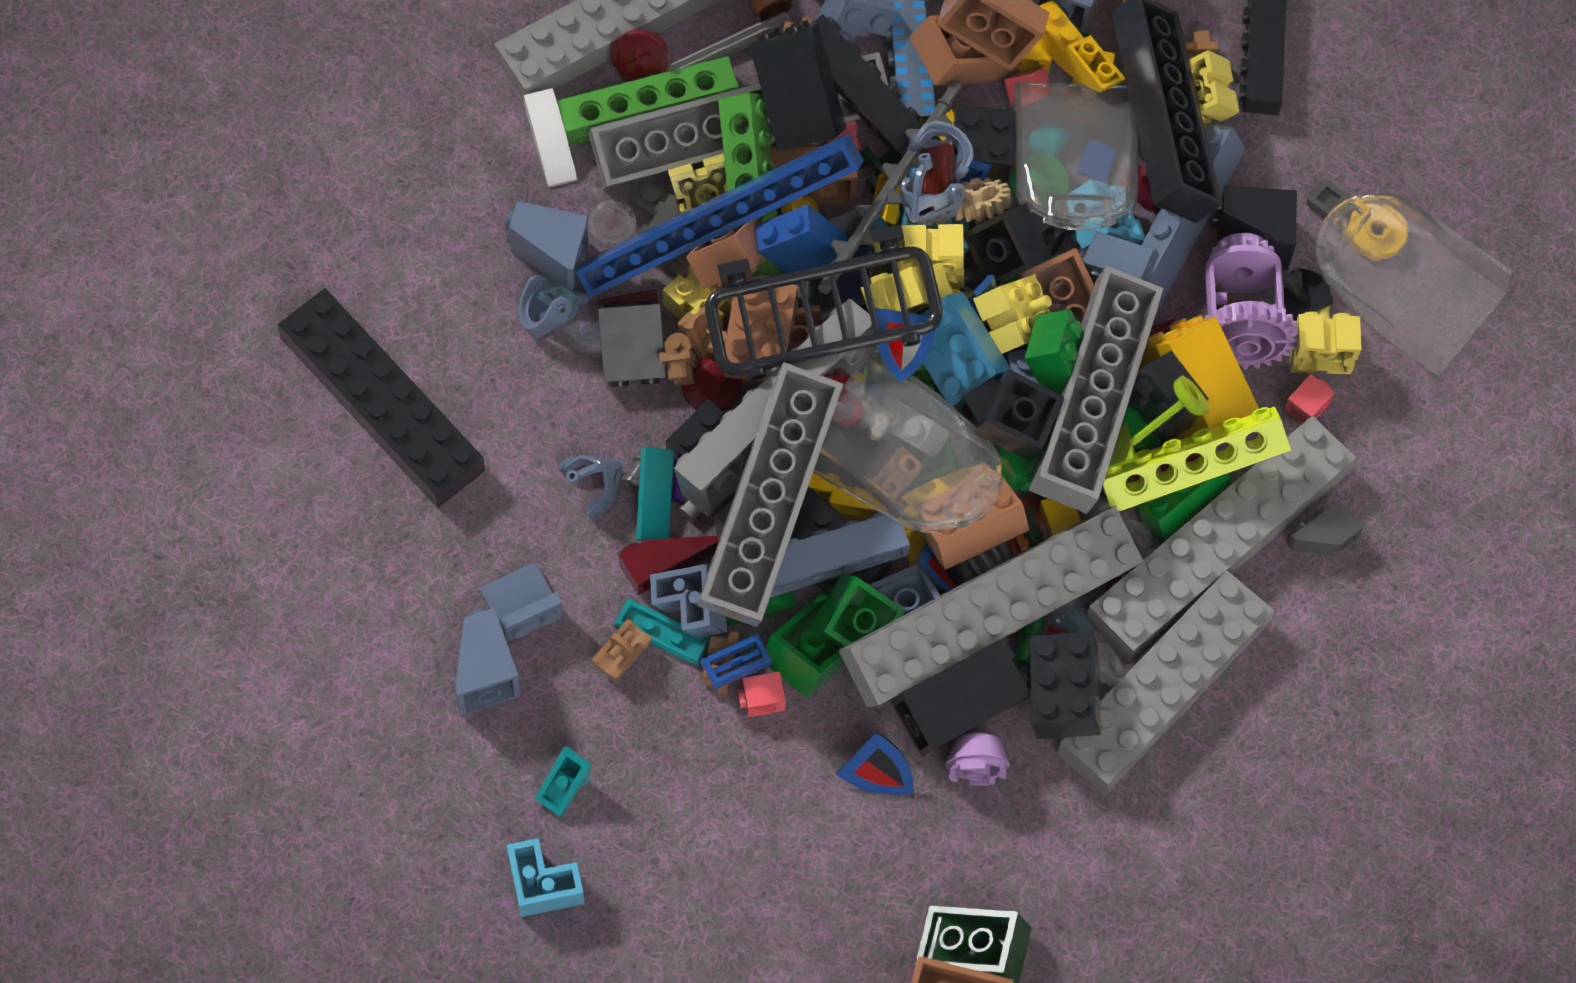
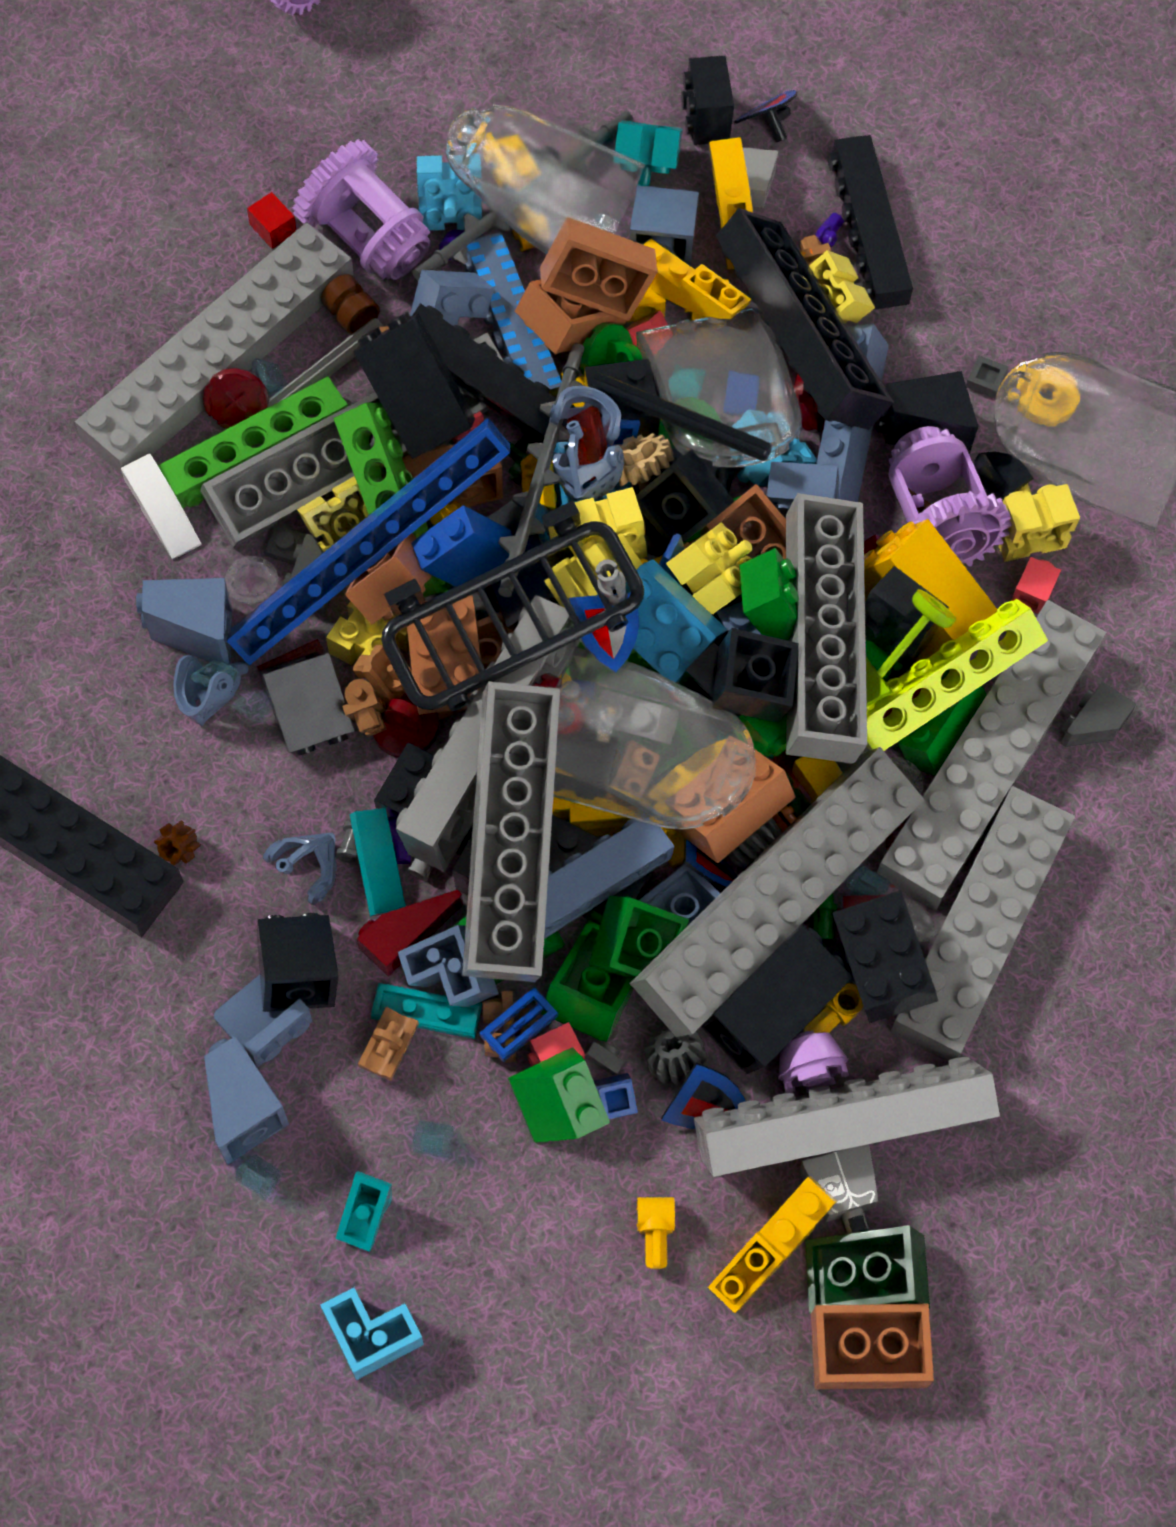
camera: 15 degrees left, 0 degrees up
(483, 731) = (258, 1176): none -> clear light blue slope
(488, 435) = (177, 843): none -> reddish brown gear
(562, 561) = (296, 961): none -> black slope
(638, 740) = (433, 1139): none -> clear light blue slope
(677, 42) = (269, 375): none -> clear light blue slope
(752, 732) = (559, 1098): none -> green slope
(802, 708) = (604, 1056): none -> dark grey plate
(803, 746) = (617, 1095): none -> blue slope
(805, 856) = (656, 1221): none -> yellow axle
(859, 722) = (674, 1056): none -> dark grey gear
(899, 901) = (772, 1244): none -> yellow slope
(910, 304) = (615, 581): none -> light grey pin
(974, 868) = (850, 1180): none -> light grey torso
(986, 90) = (609, 345): none -> green tile
(993, 810) = (845, 1116): none -> light grey brick
(1010, 725) = (833, 1014): none -> yellow axle
(1026, 171) = (682, 416): none -> black axle
(1221, 30) = (827, 231): none -> dark purple arm

